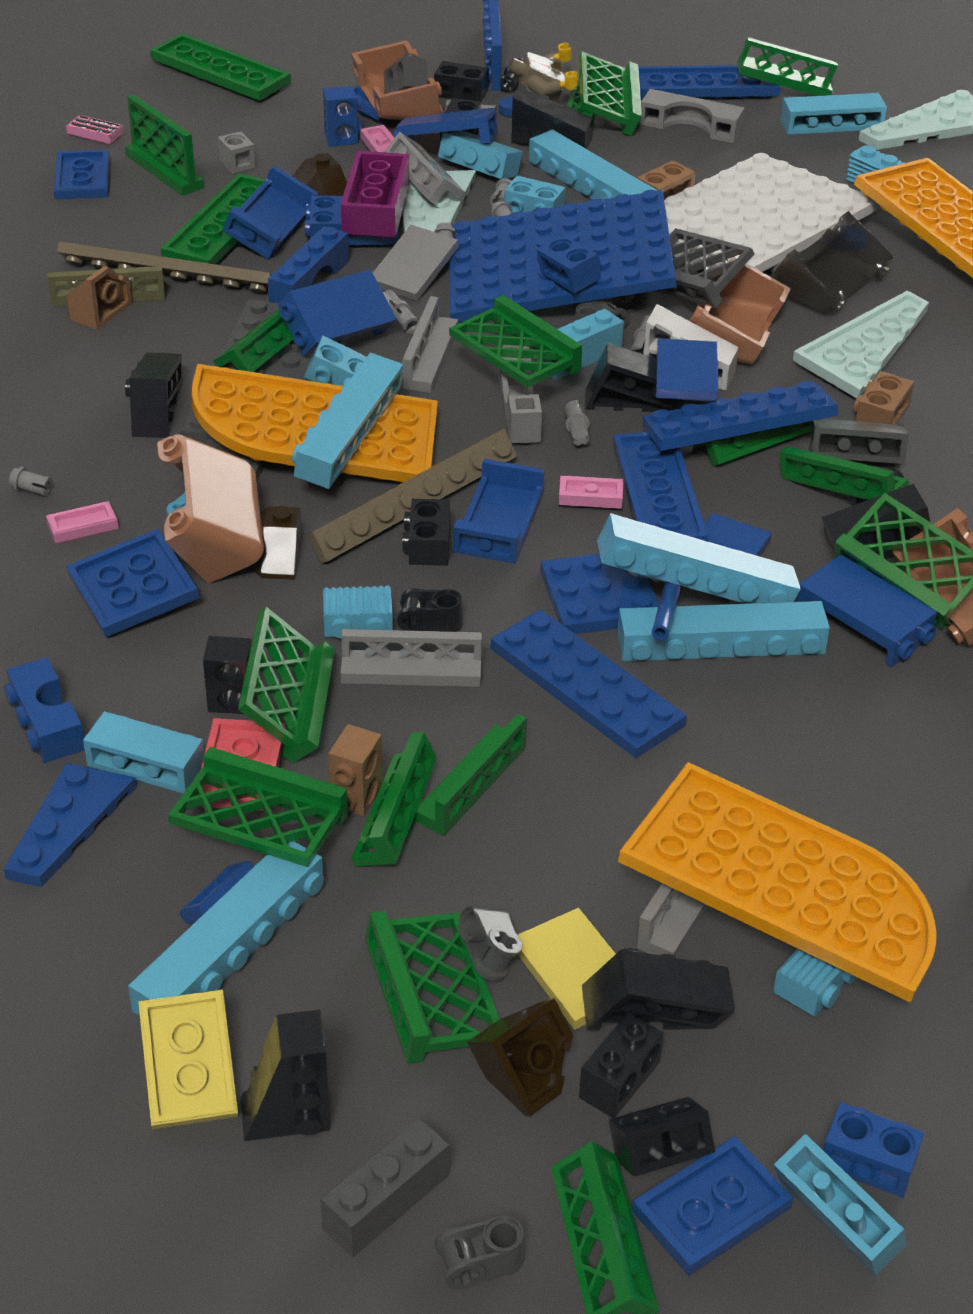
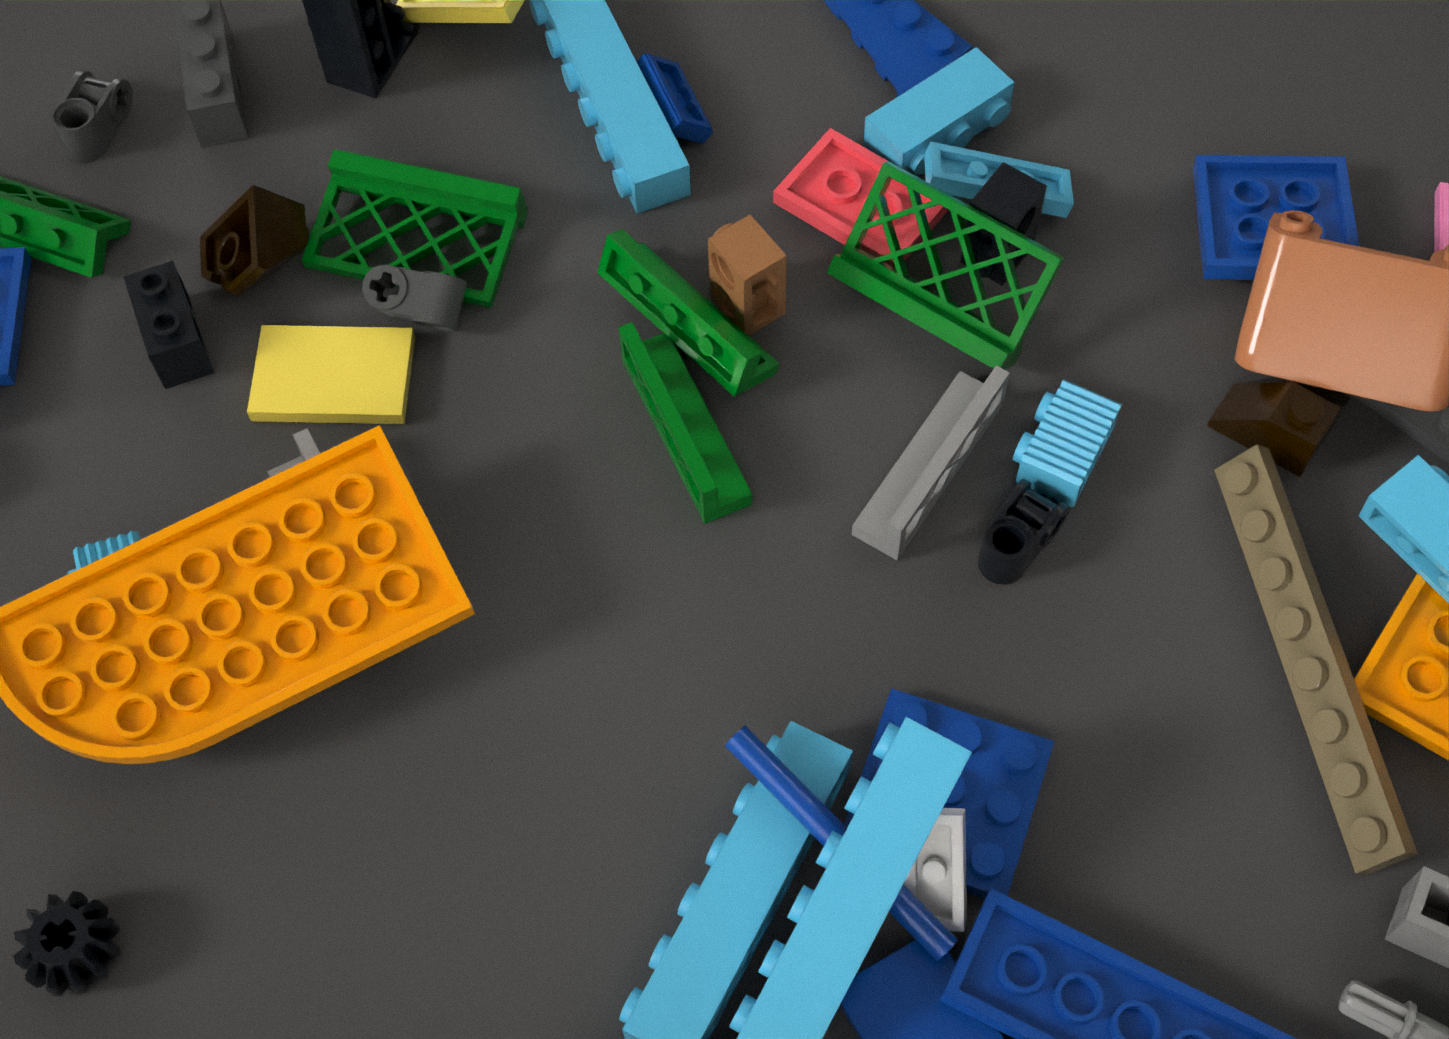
camera: 125 degrees right, 20 degrees up
(50, 722) = (1109, 47): blue arch -> none
(187, 699) = (965, 172): none -> medium azure plate
(269, 787) = (774, 178): green fence -> none
(428, 532) = (1197, 632): black brick -> none
(500, 512) = (1206, 755): blue panel -> none
(588, 683) = (769, 660): blue plate -> none
(591, 492) = (1192, 922): bright pink plate -> none
(658, 990) = (203, 394): black wedge -> none
(661, 1136) = (53, 300): black brick -> none

